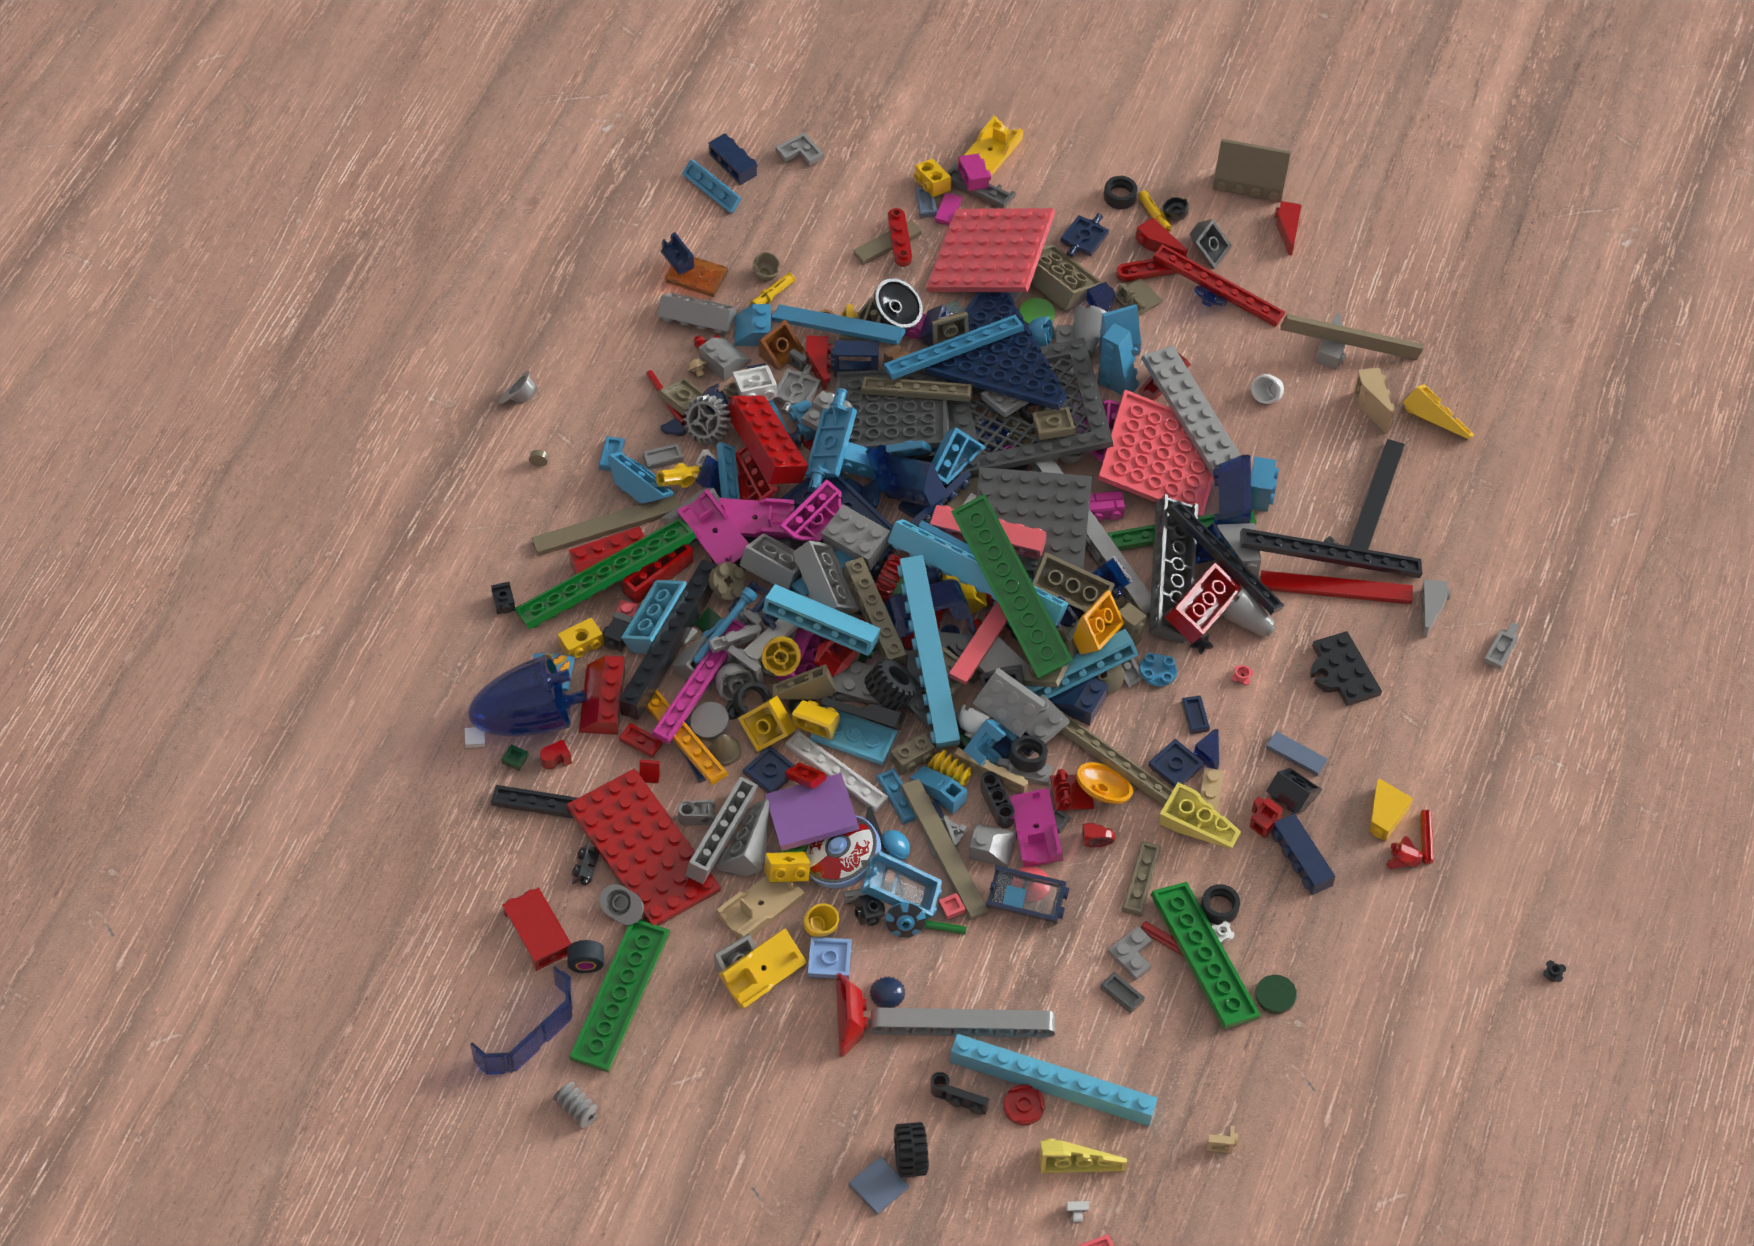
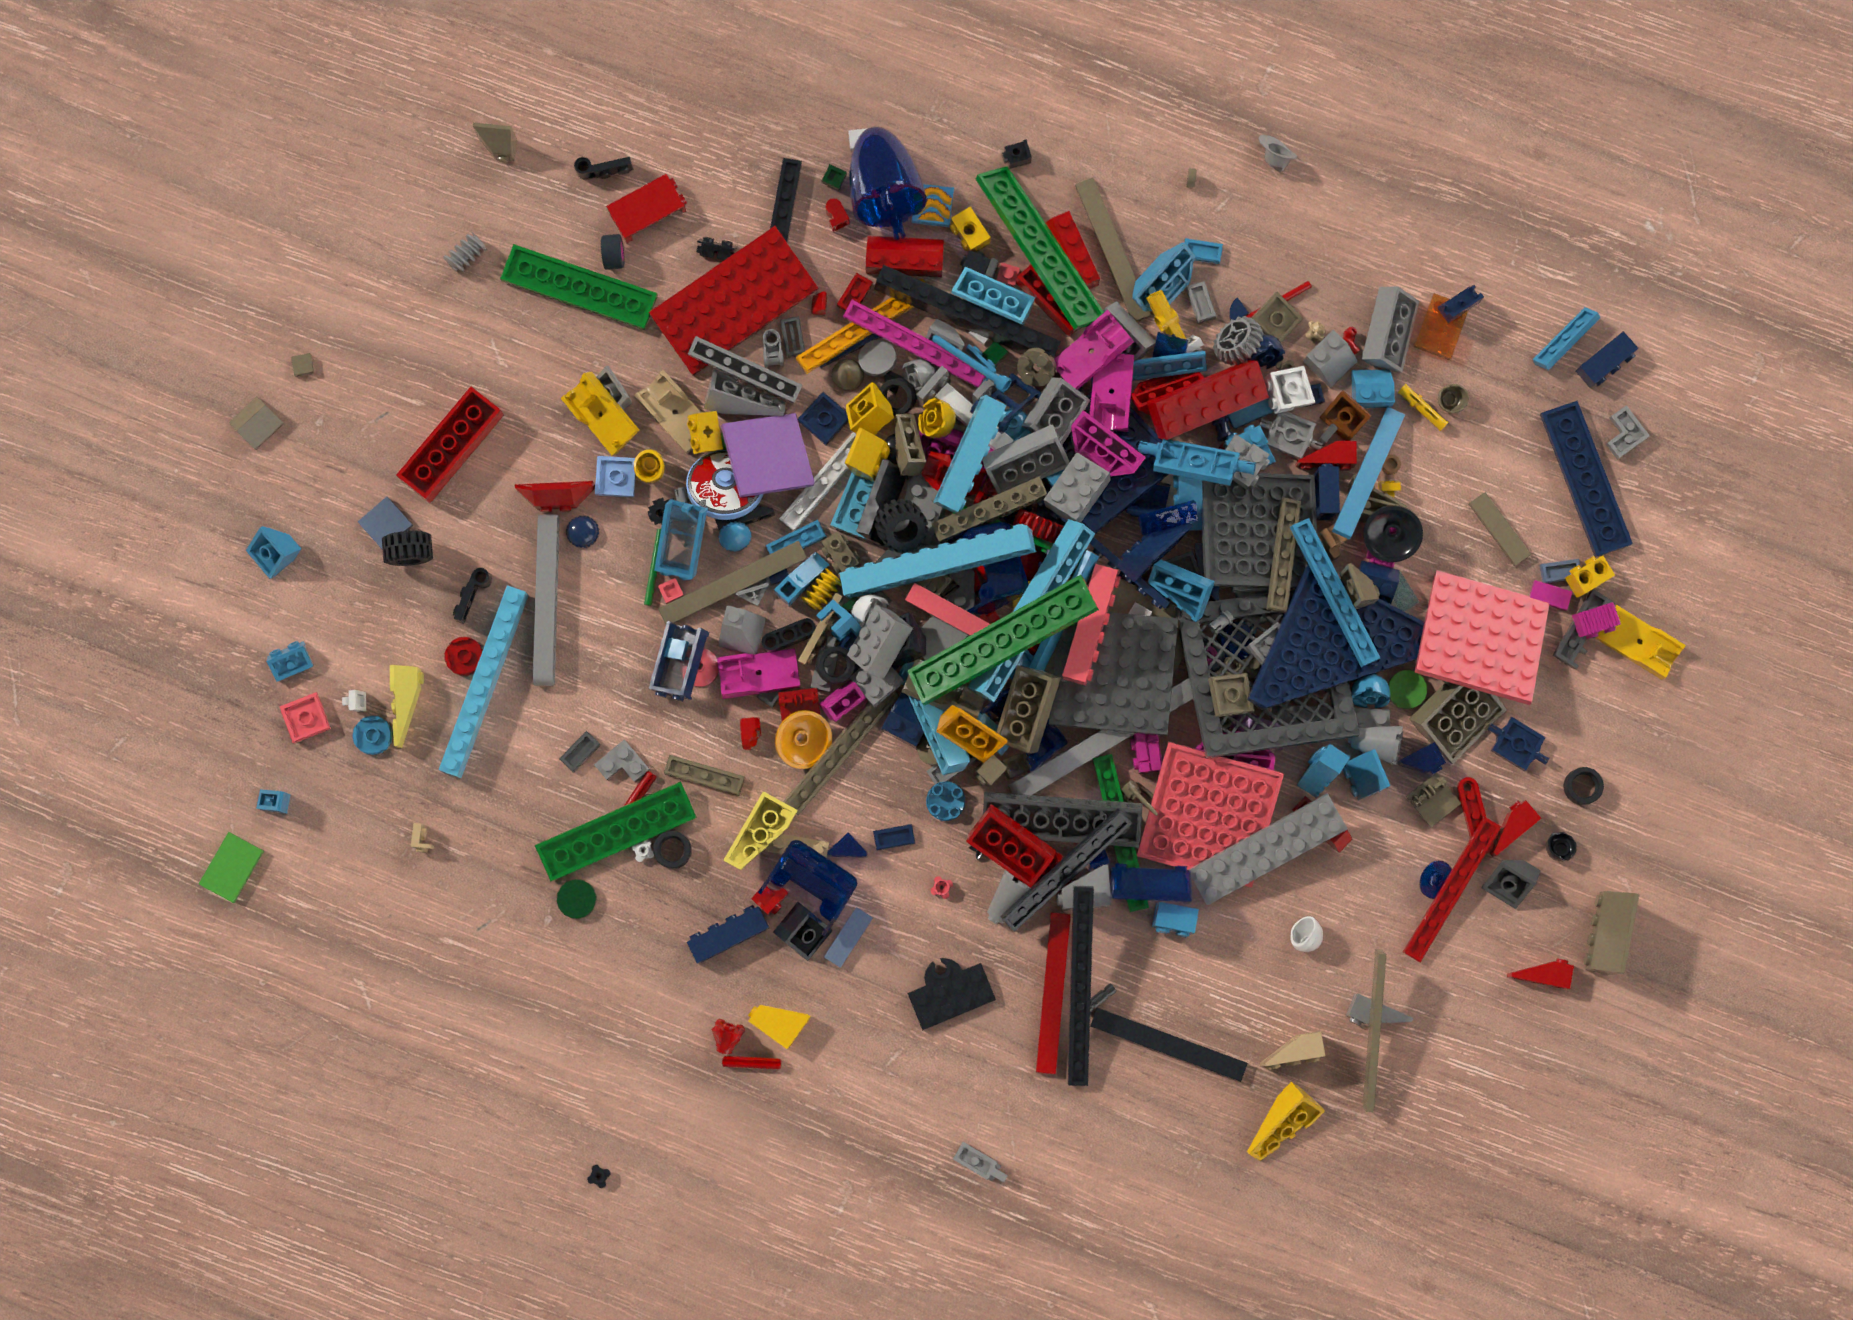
camera: 90 degrees right, 25 degrees up
(452, 1070) = (498, 140): none -> dark tan slope
(492, 970) = (602, 170): none -> black plate
(509, 1062) = (570, 239): clear blue windscreen -> none
(621, 904) = (668, 282): light grey piece -> none
(673, 803) = (795, 352): none -> dark grey tile
(734, 638) = (956, 371): light grey hinge -> none
(794, 1114) = (450, 444): none -> red brick
(805, 775) = (809, 448): red plate -> none
(841, 179) = (1586, 479): none -> dark blue plate
(899, 237) = (1502, 540): red plate -> none
(902, 913) = (650, 545): dish -> none
(909, 448) = (1194, 543): dark azure plate -> none
(978, 431) = (1220, 622): none -> light grey pin
(1064, 750) = (842, 700): none -> dark pink brick
(1112, 1195) = (372, 735): none -> dark azure tile
(1141, 517) = (1133, 790): none -> dark tan plant
(1153, 210) = (1557, 823): yellow pin -> none
(1176, 763) = (832, 814): dark blue plate -> none
(1244, 768) = (816, 876): none -> clear blue windscreen
(1433, 600) = (1035, 1094): light grey slope -> none

